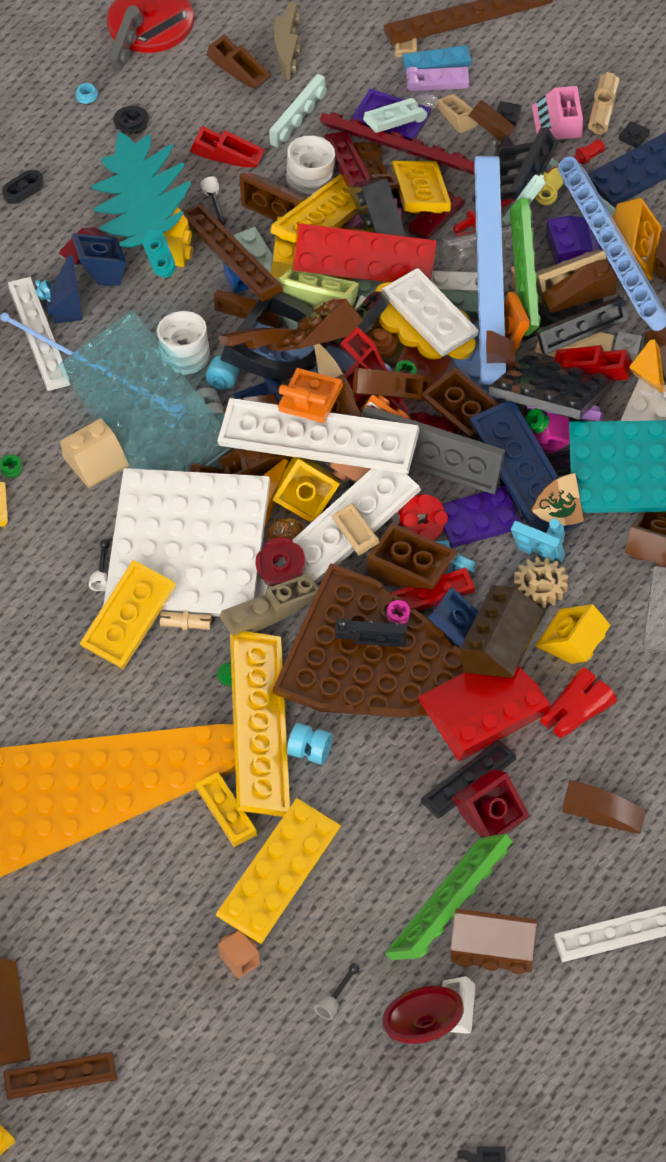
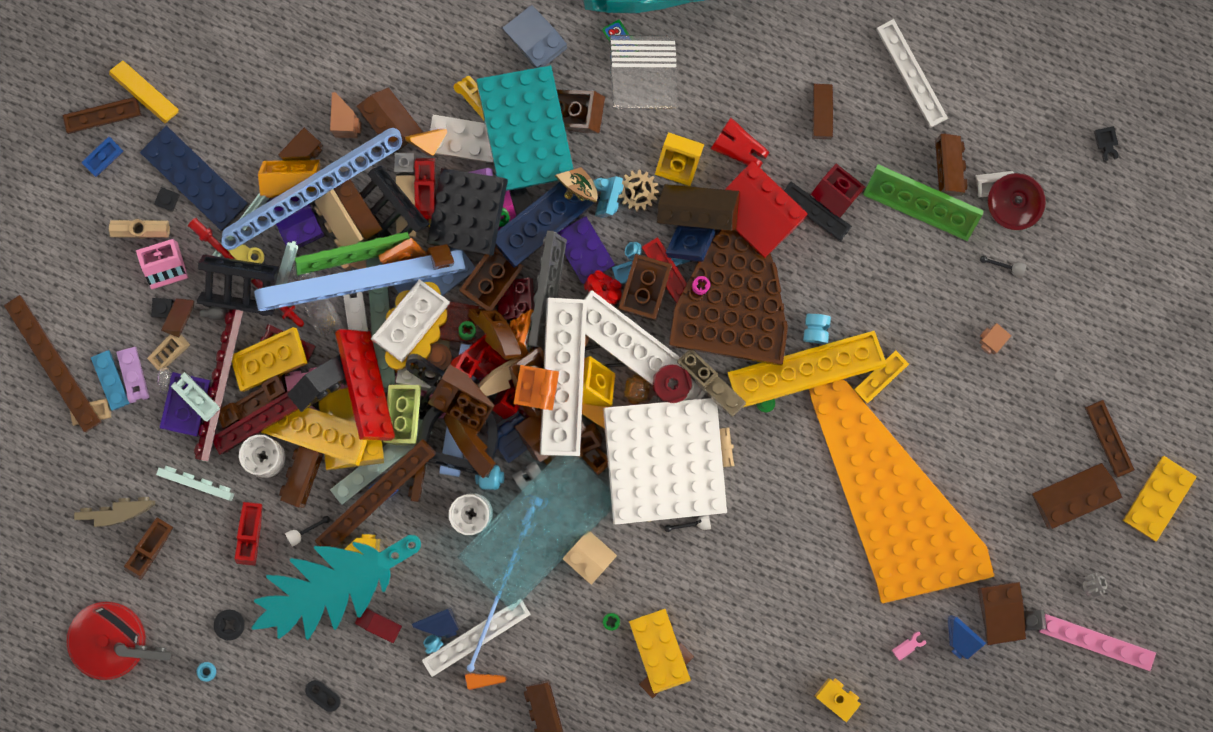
camera: 105 degrees left, 30 degrees up
(101, 257) = (395, 606): dark blue slope -> none
(128, 614) = (737, 489): yellow plate -> none
(278, 871) = (927, 325): yellow plate -> none
(355, 529) = (635, 332): tan tile -> none
(371, 633) = (724, 301): black hinge -> none

